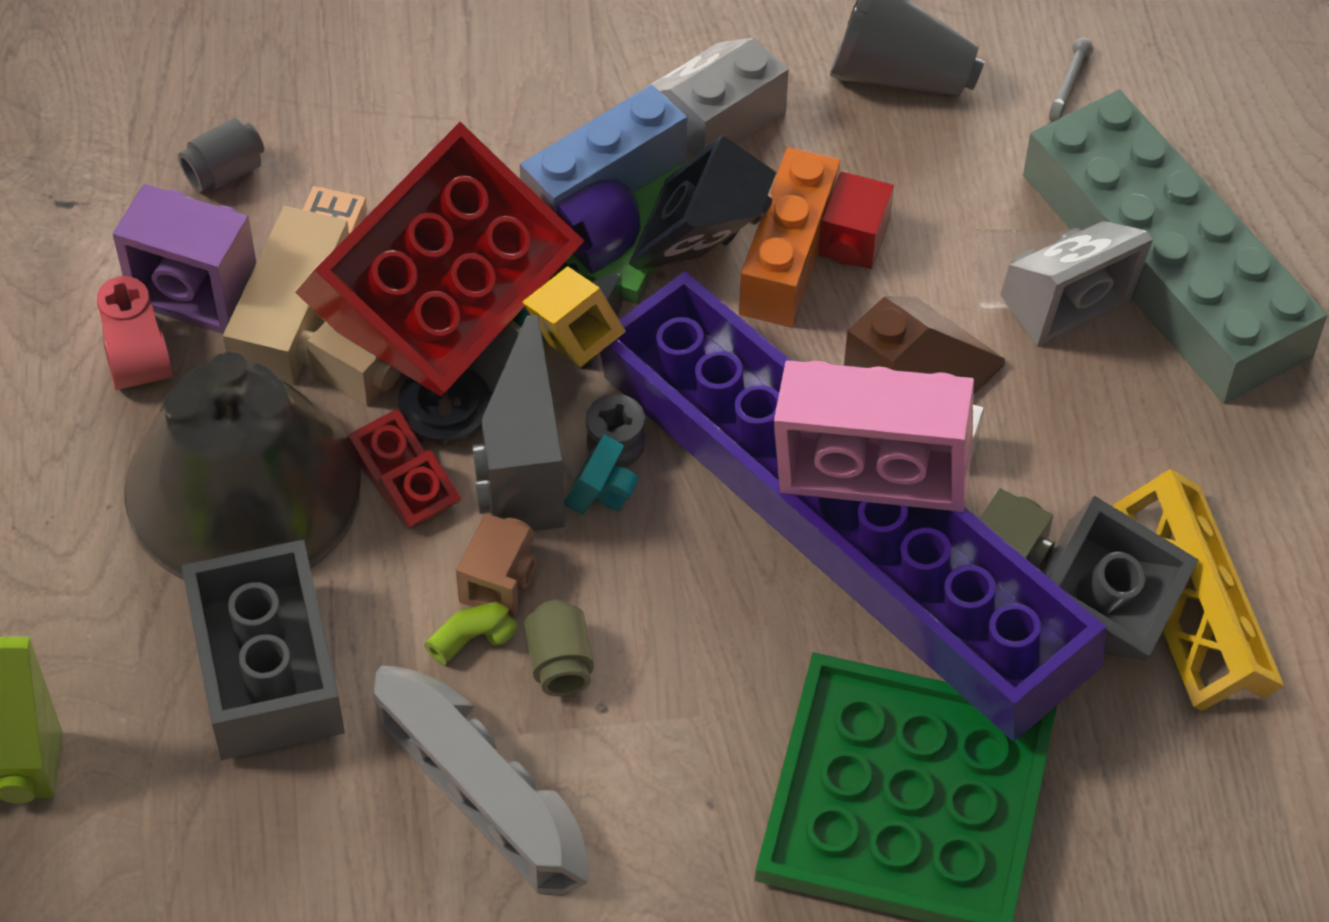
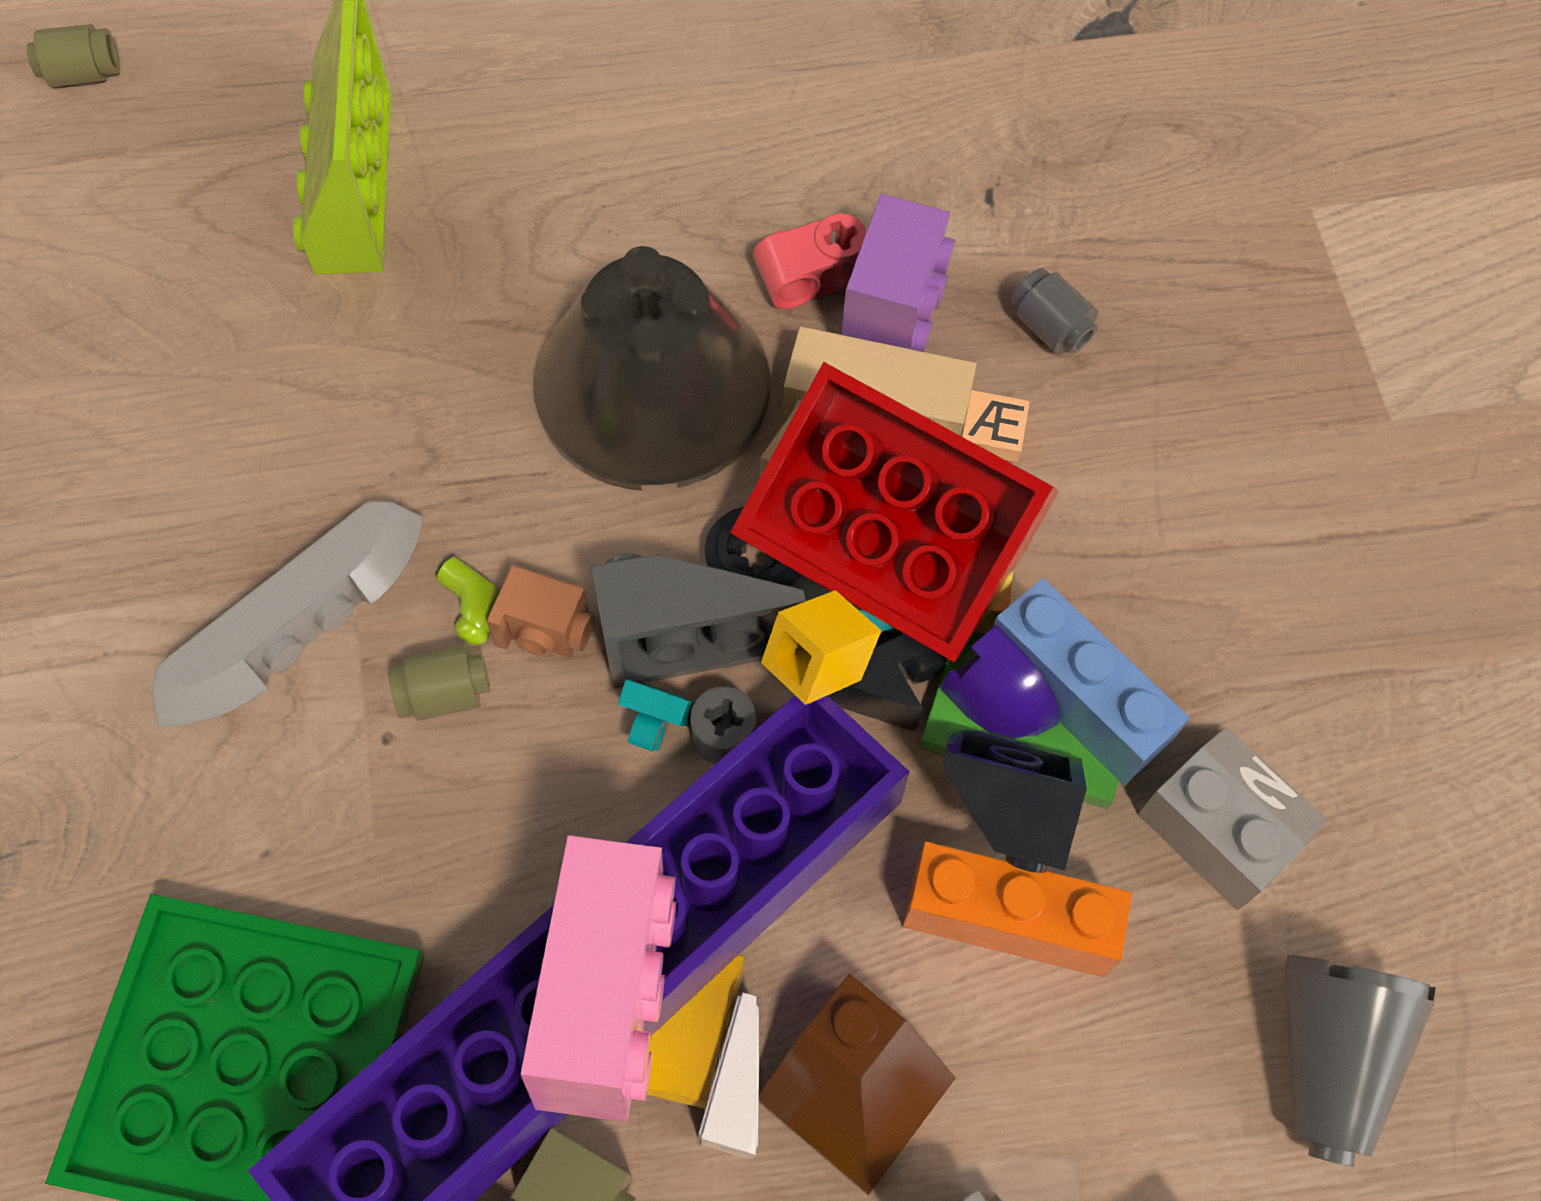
camera: 85 degrees right, 10 degrees up
(262, 650) = (429, 404): dark grey brick -> none
(402, 470) = (673, 519): red slope -> none
(856, 220) = (1053, 993): red brick -> none

